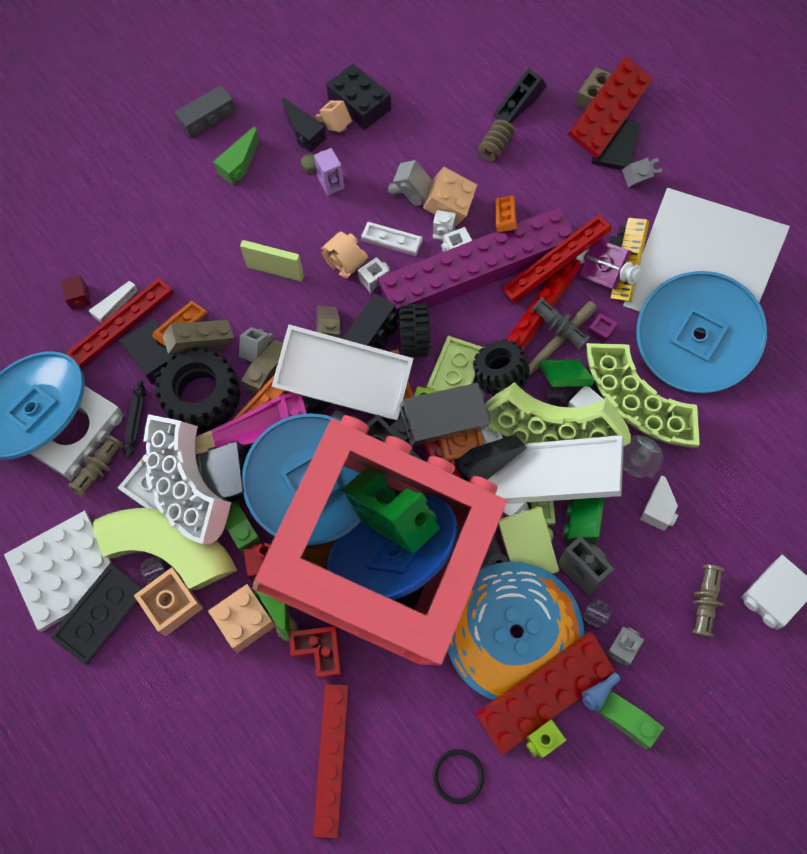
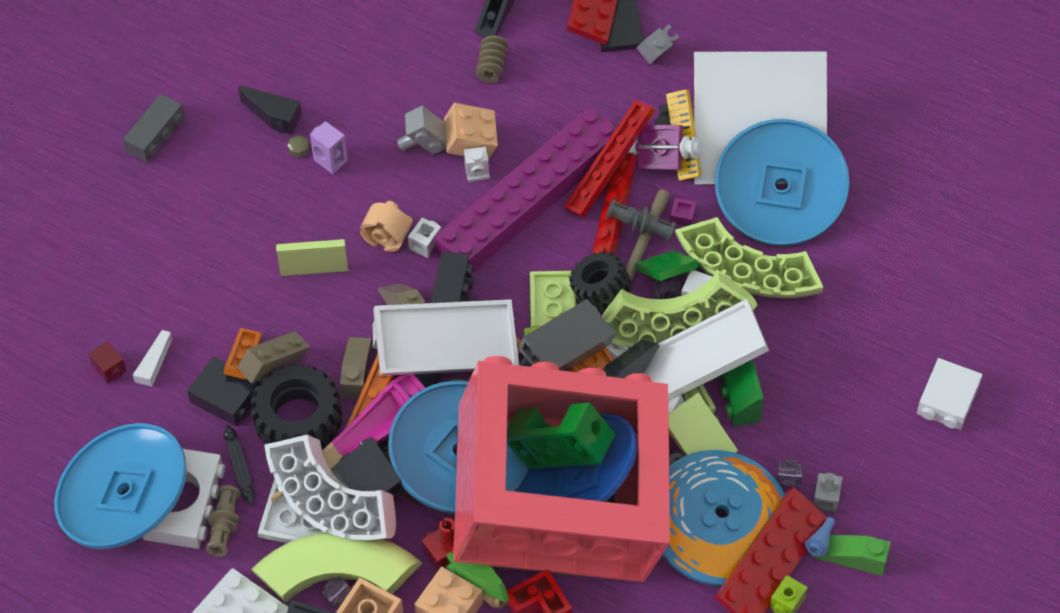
camera: 25 degrees left, 10 degrees down
(120, 322) = (174, 372): red plate -> none
(236, 159) = (214, 171): bright green slope -> none
(240, 528) = (411, 526): bright green slope -> none
(253, 343) = (332, 347): light grey brick -> none
(335, 116) = (304, 87): light nougat brick -> none
(361, 94) = (320, 58): black brick -> none
(391, 239) = (425, 195): white tile -> none
(415, 330) = (497, 274): black tyre -> none
(455, 239) = (495, 173): white brick -> none
(505, 214) = (537, 130): orange tile -> none
(585, 565) = (761, 433): dark grey brick -> none
(642, 457) = (774, 317): clear tile -> none
(660, 506) = (810, 358): white slope -> none
(707, 601) = (887, 424): dark tan piece -> none

